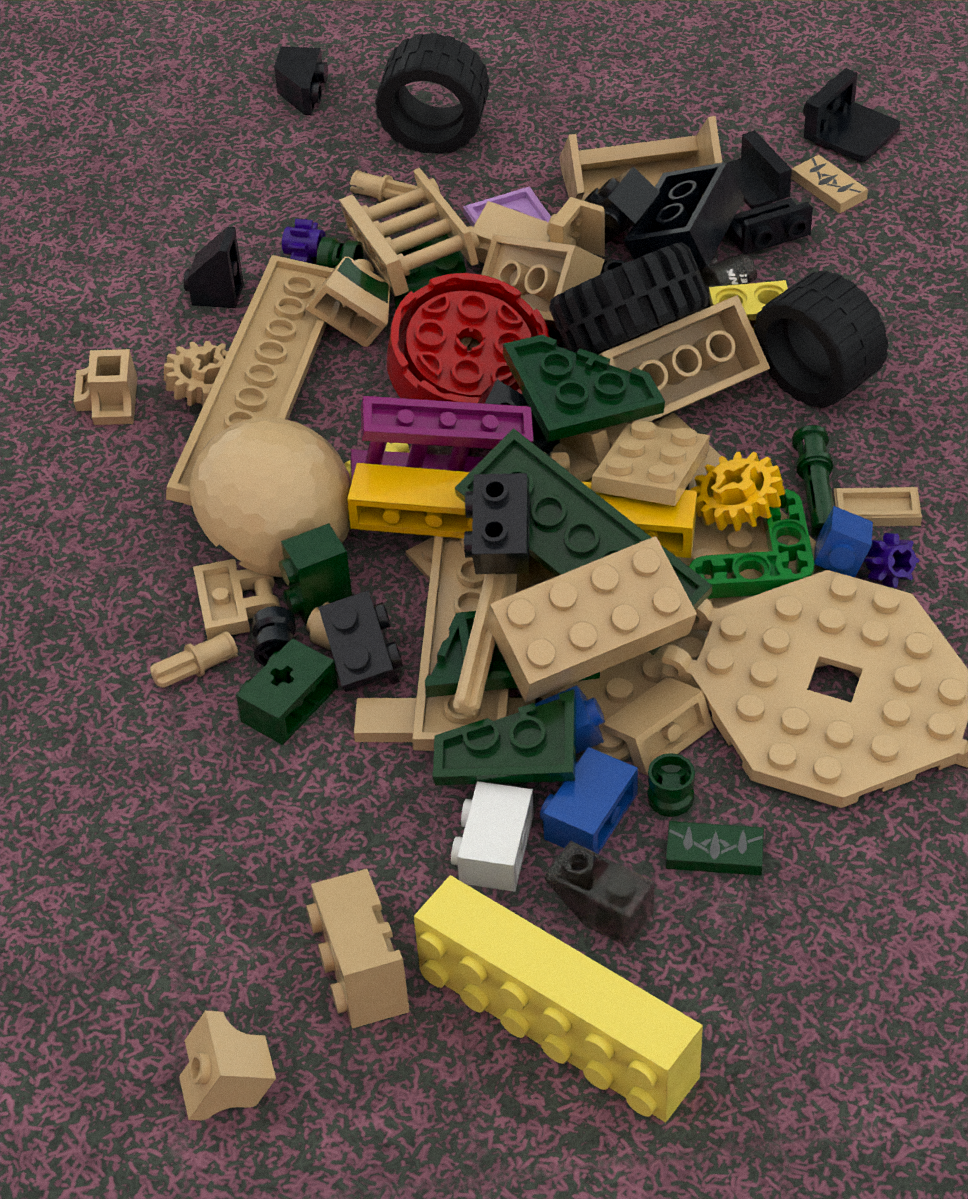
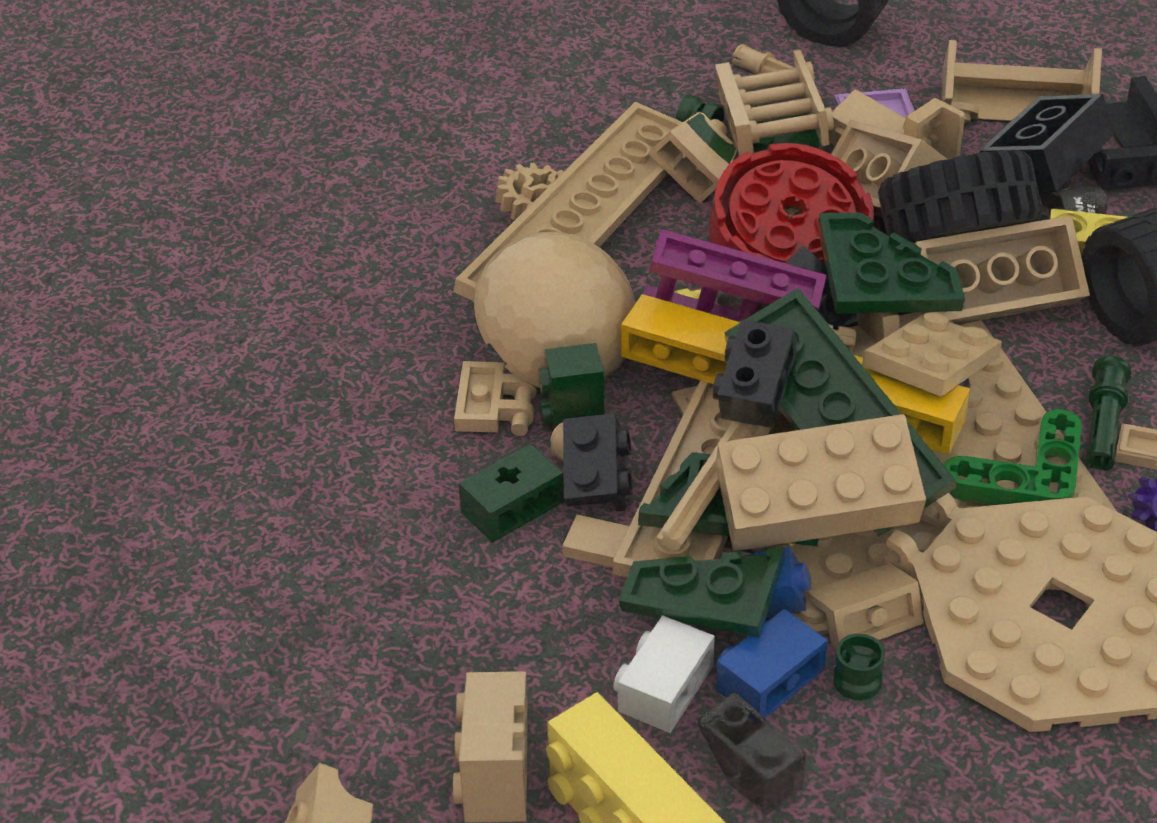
camera: 15 degrees right, 5 degrees down
(107, 387) = (442, 188): tan brick -> none
(194, 660) = (435, 445): tan axle -> none
(216, 273) = (578, 108): black slope -> none
(272, 631) = (515, 432): black wheel -> none
(302, 240) = (668, 94): dark purple gear -> none
(623, 200) = (988, 114): black brick -> none
(715, 848) = (886, 739): dark green tile -> none
(738, 491) = (1017, 402): yellow gear -> none
(843, 542) = (1113, 474): blue brick -> none

